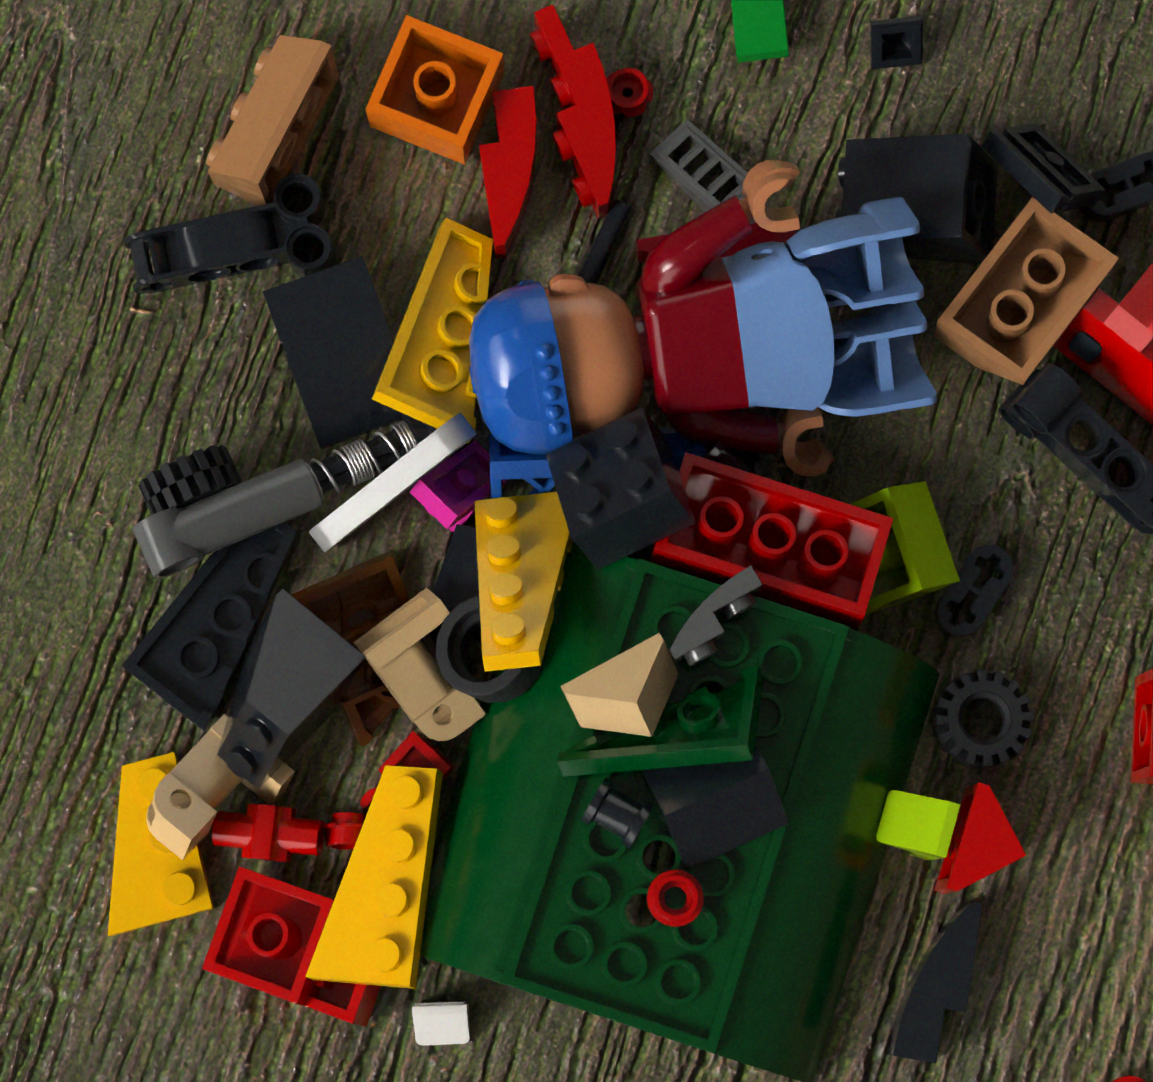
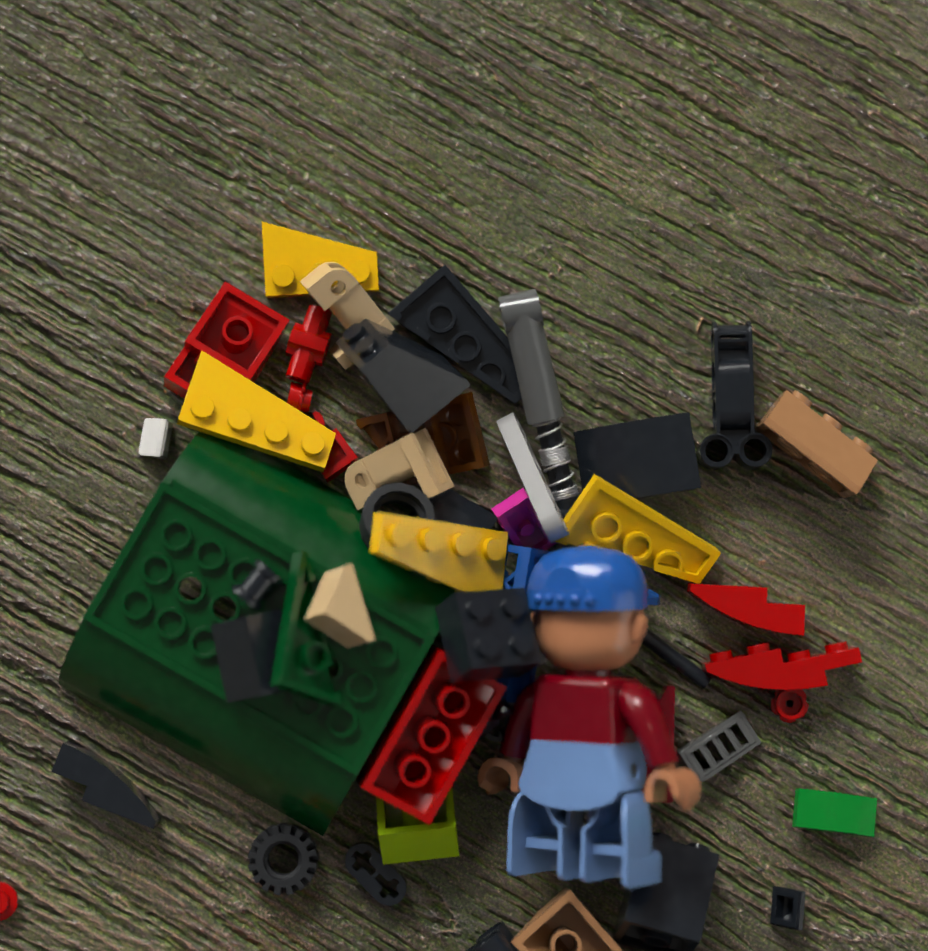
camera: 105 degrees right, 5 degrees up
(189, 479) = (562, 335): black tyre -> none
(435, 89) = (816, 564): orange brick -> none
(688, 885) = (179, 613): red plate -> none
(702, 628) = (371, 669): dark grey slope -> none
(918, 824) = (215, 795): lime slope -> none
(979, 842) = (193, 834): red slope -> none

